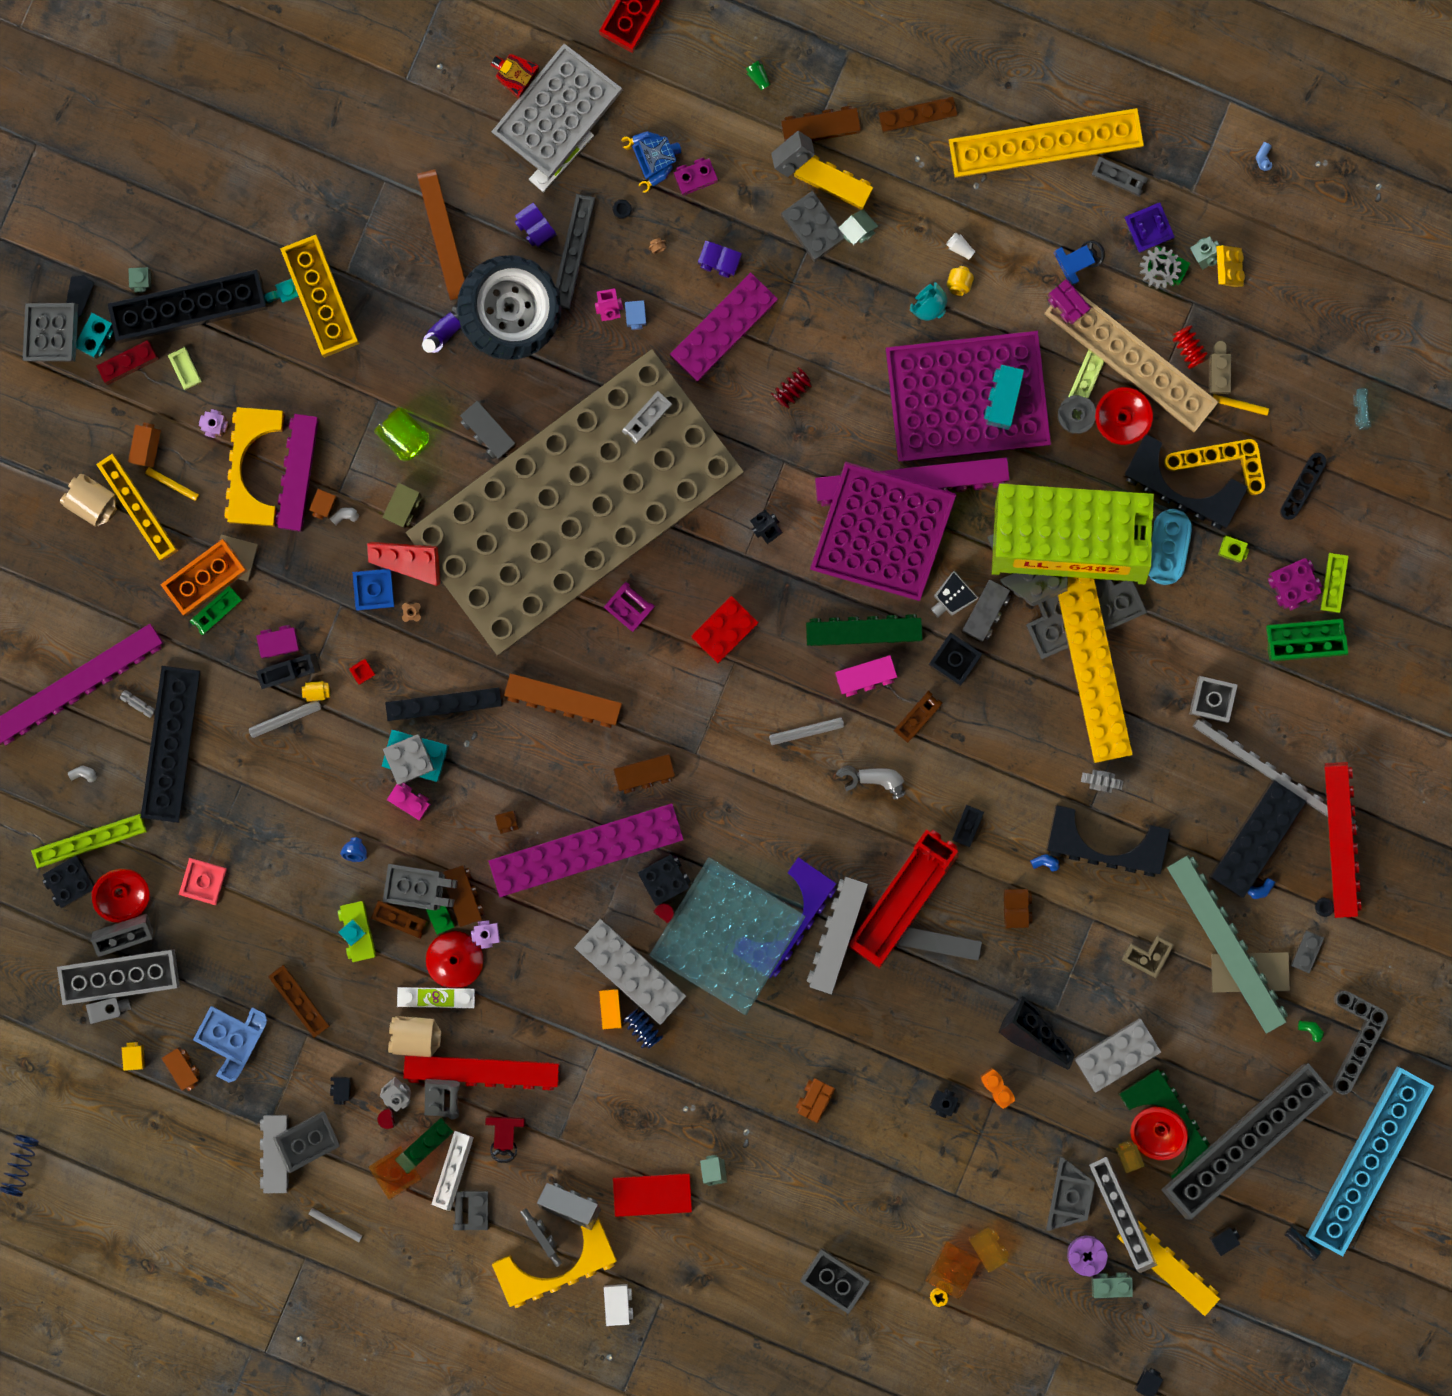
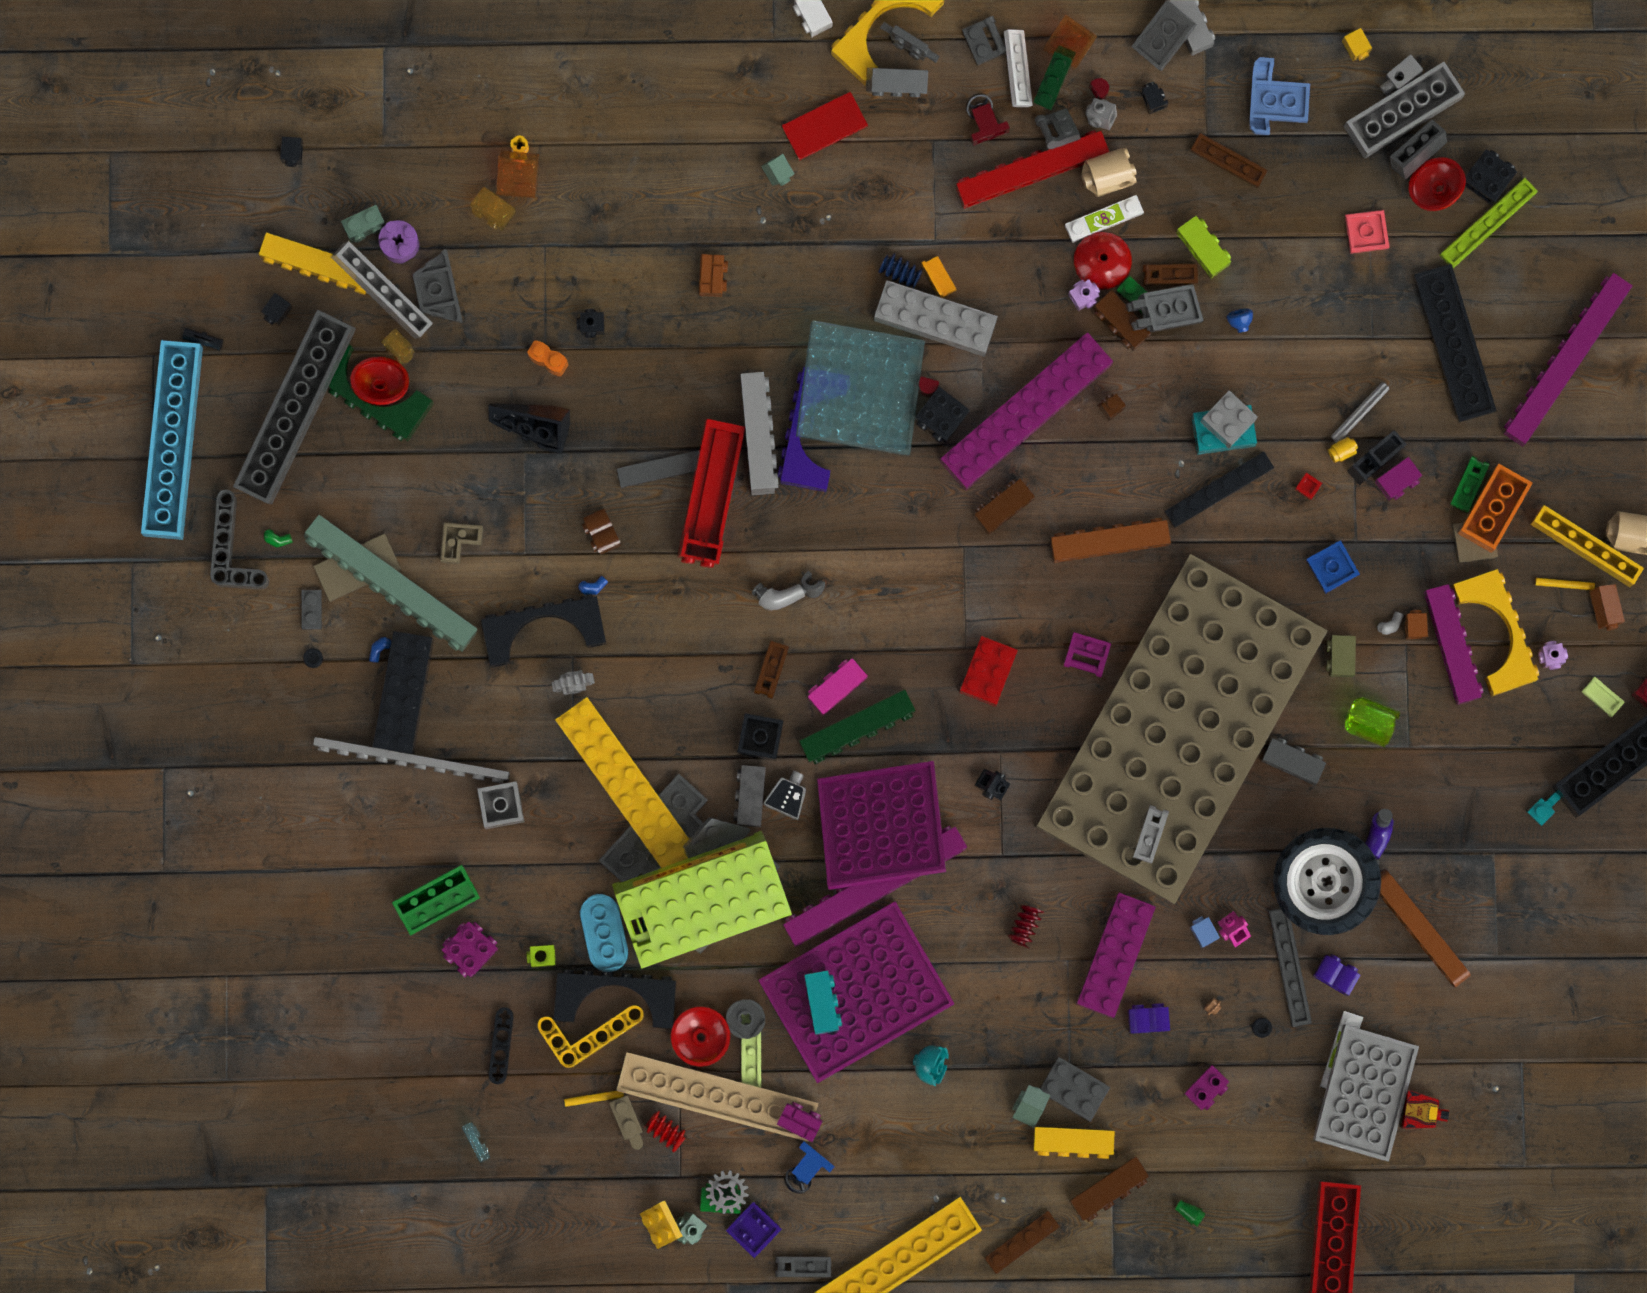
camera: 150 degrees right, 5 degrees down
(83, 771) = (1522, 283): light grey arm -> none
(137, 704) = (1502, 367): light grey axle -> none
(181, 1069) = (1308, 53): dark orange brick -> none
(319, 296) = (1508, 818): yellow brick -> none
(352, 932) = (1208, 241): teal plate -> none
(407, 608) = (1290, 555): medium nougat plate -> none
(409, 802) = (1209, 385): dark pink brick -> none
(411, 560) = (1313, 606): wing -> none
(654, 156) = (1255, 1090): blue torso -> none
(793, 153) = (1124, 1149): dark grey brick -> none
(806, 731) = (869, 611): light grey axle -> none
(834, 1280) = (622, 119): dark grey brick -> none
(960, 246) = (927, 1133): white cone -> none
(960, 281) = (911, 1098): yellow head -> none
(967, 826) = (680, 588): black plate -> none
(1117, 1055) = (449, 436): light grey brick -> none
(1334, 583) = (432, 966): lime plate -> none
(1341, 839) = (324, 724): red brick -> none

